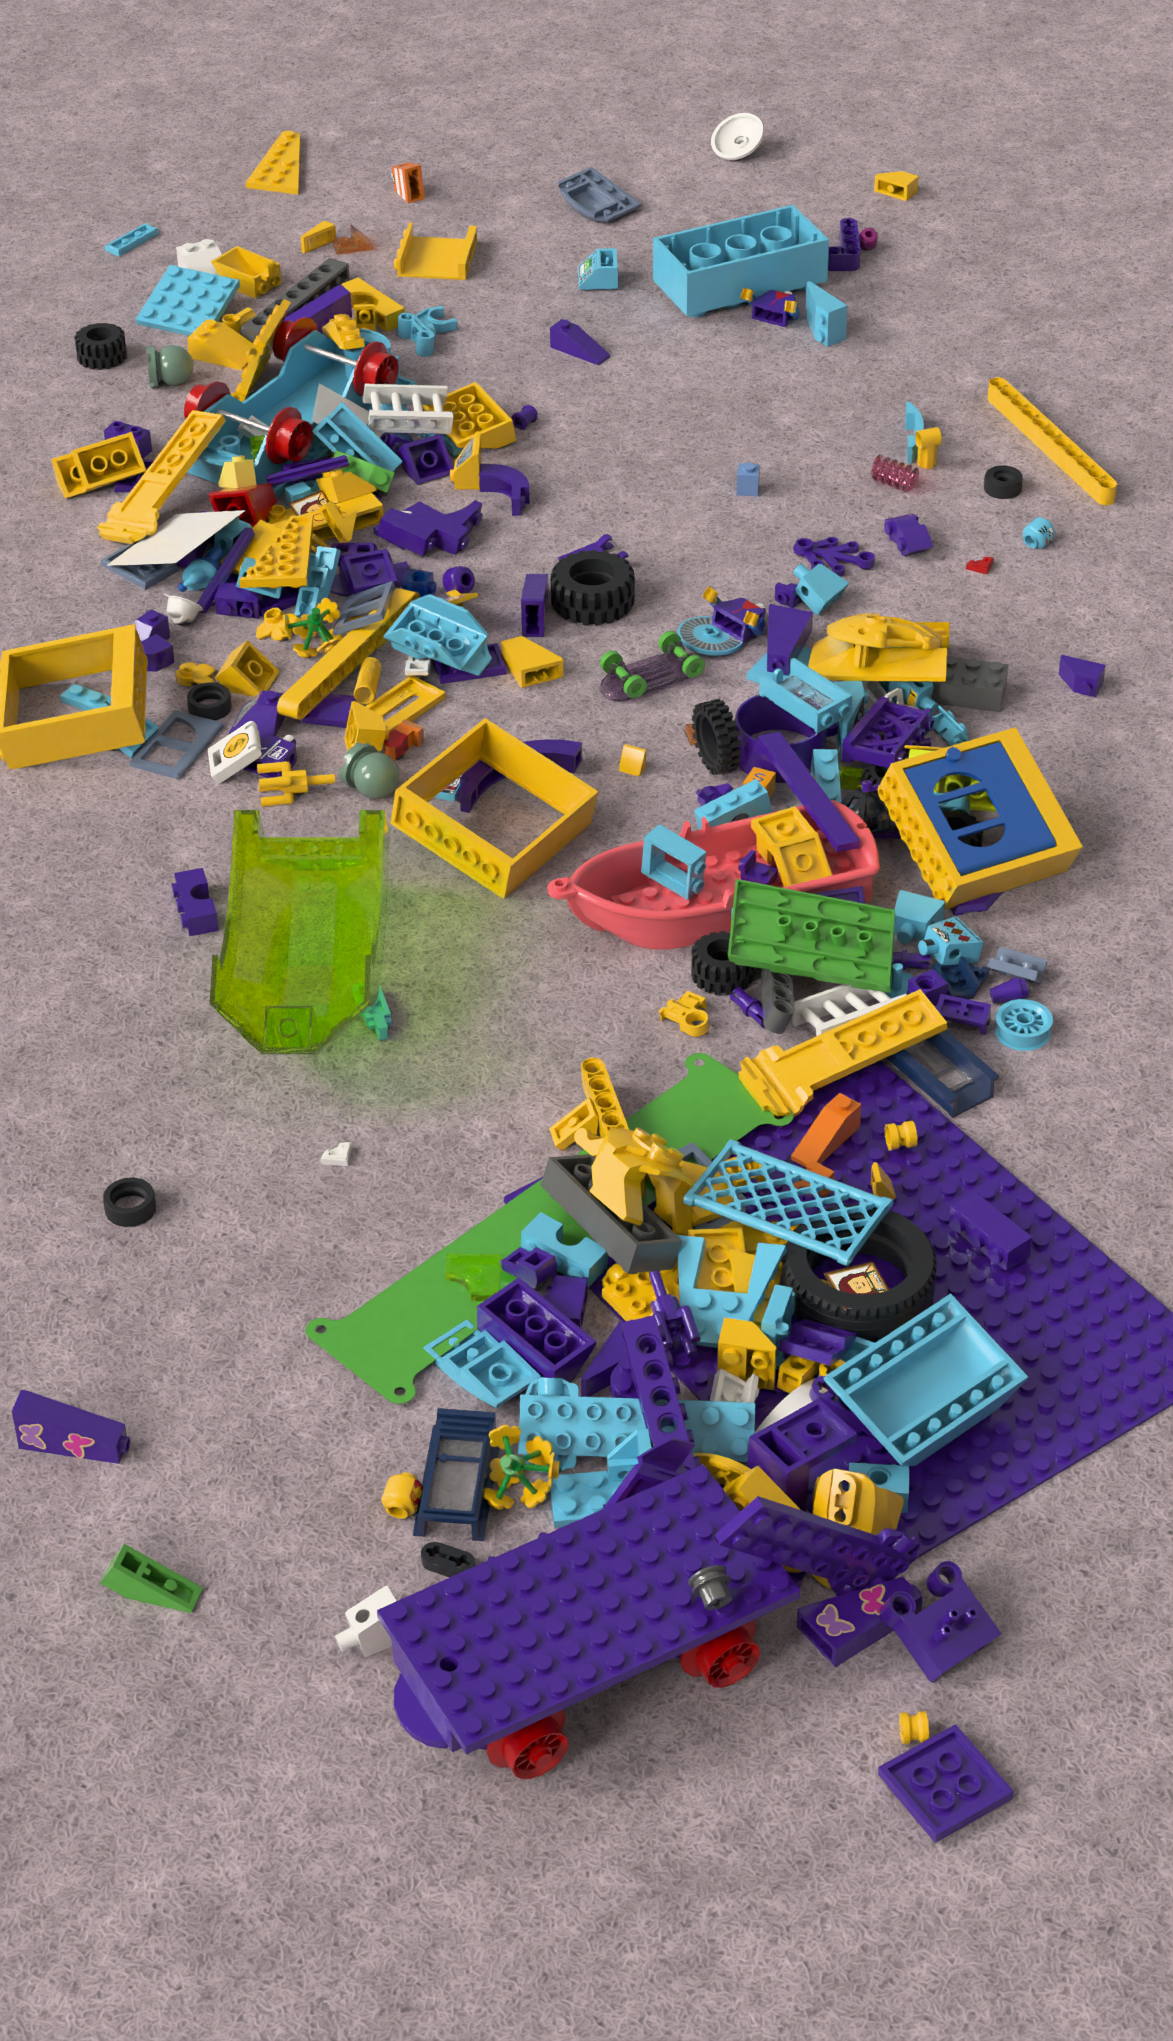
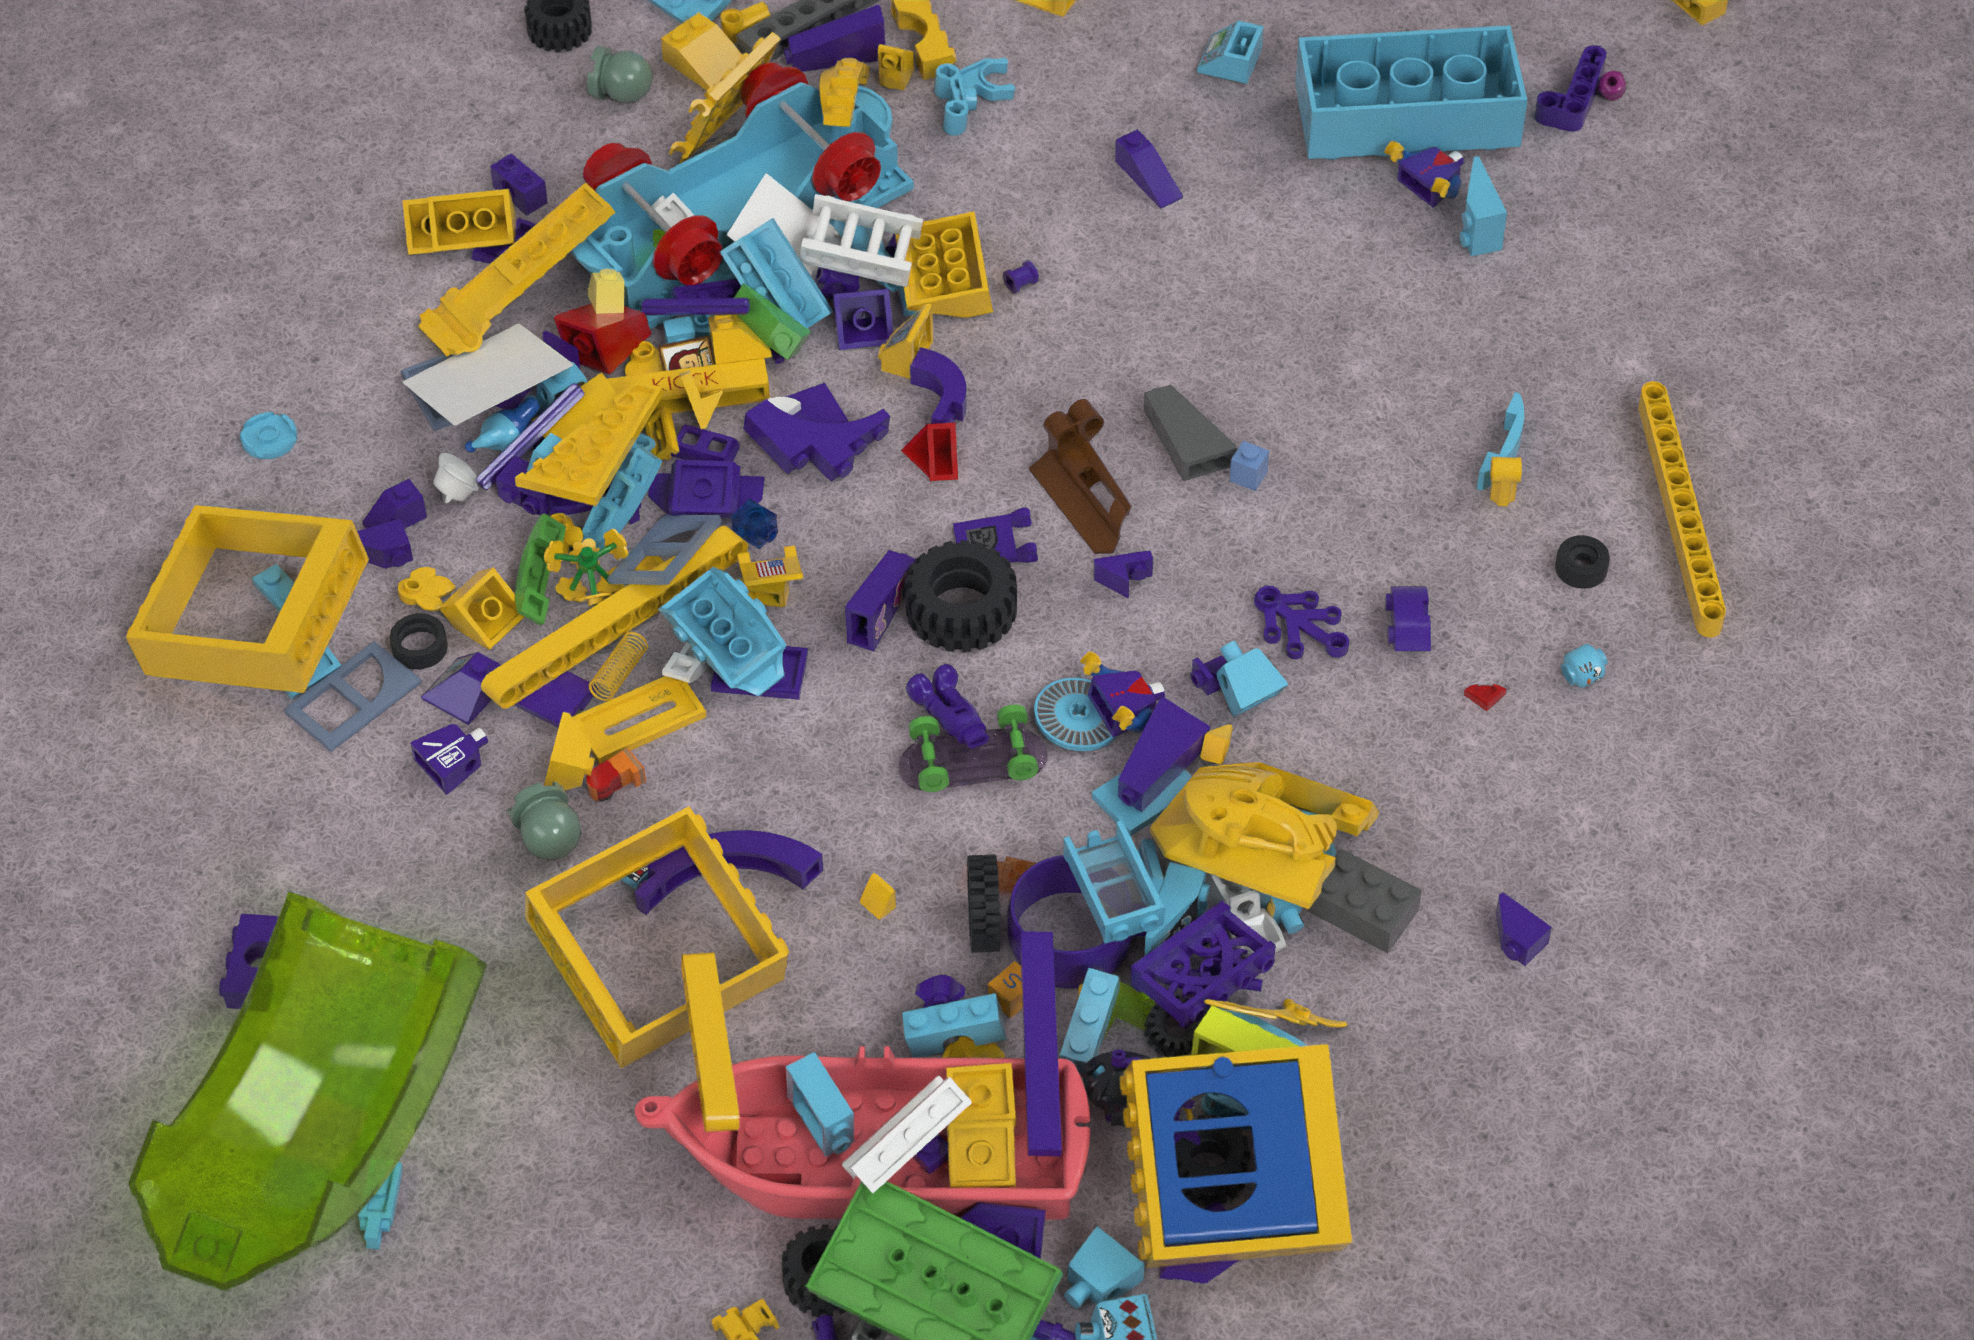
camera: 20 degrees right, 10 degrees up
(29, 617) = (268, 435): none -> medium azure tile
(234, 752) = (402, 738): white container -> none
(271, 639) = (533, 571): none -> bright green slope
(290, 782) = (446, 805): yellow plant -> none
(459, 579) = (806, 533): dark purple head -> none
(523, 518) = (935, 451): none -> red slope
(530, 662) = (830, 694): yellow slope -> none
(579, 840) = (710, 1042): none -> yellow beam
(627, 509) = (1073, 468): none -> reddish brown panel
(631, 650) = (955, 712): none -> dark purple piece
(693, 473) = (1187, 434): none -> dark grey slope
(694, 553) = (1117, 570): none -> dark purple slope
(752, 849) = (906, 1133): none -> white fence
(819, 625) = (1216, 744): none -> yellow slope
(894, 474) = (1443, 508): clear pink piece -> none
(947, 722) = (1303, 954): medium azure hinge -> none

